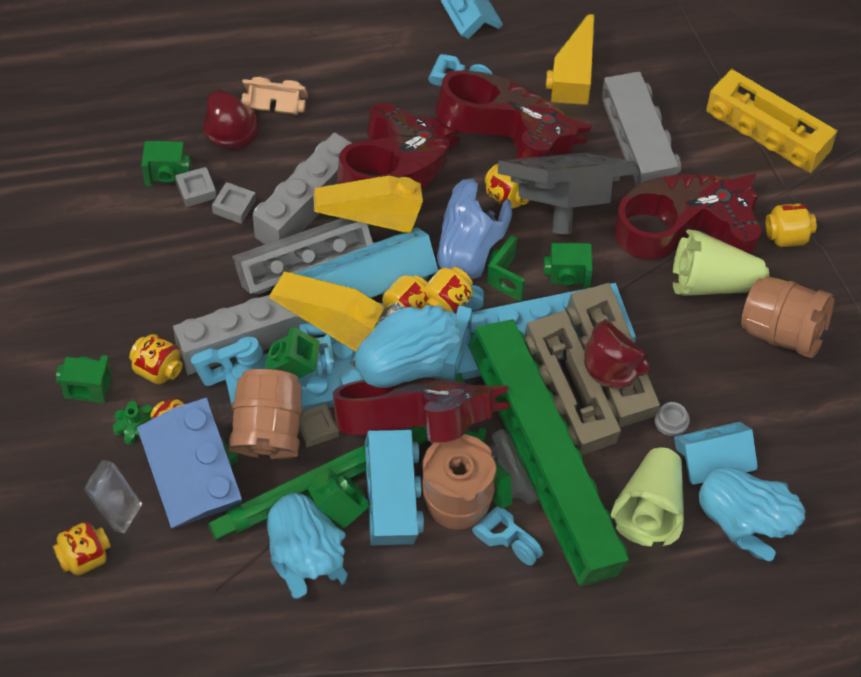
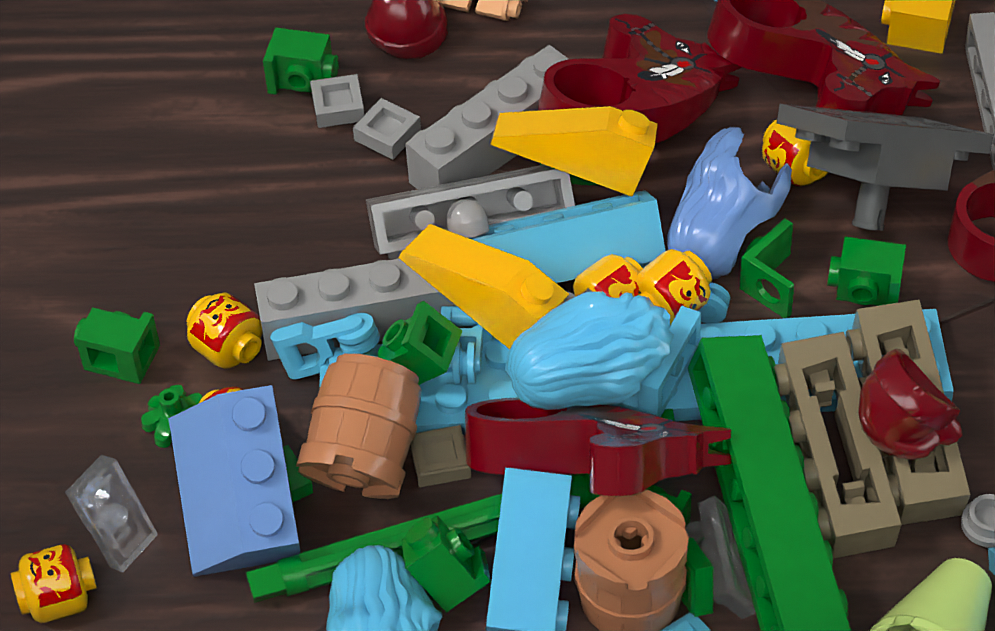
camera: 15 degrees right, 5 degrees down
(306, 264) = (467, 219): none -> light grey hinge

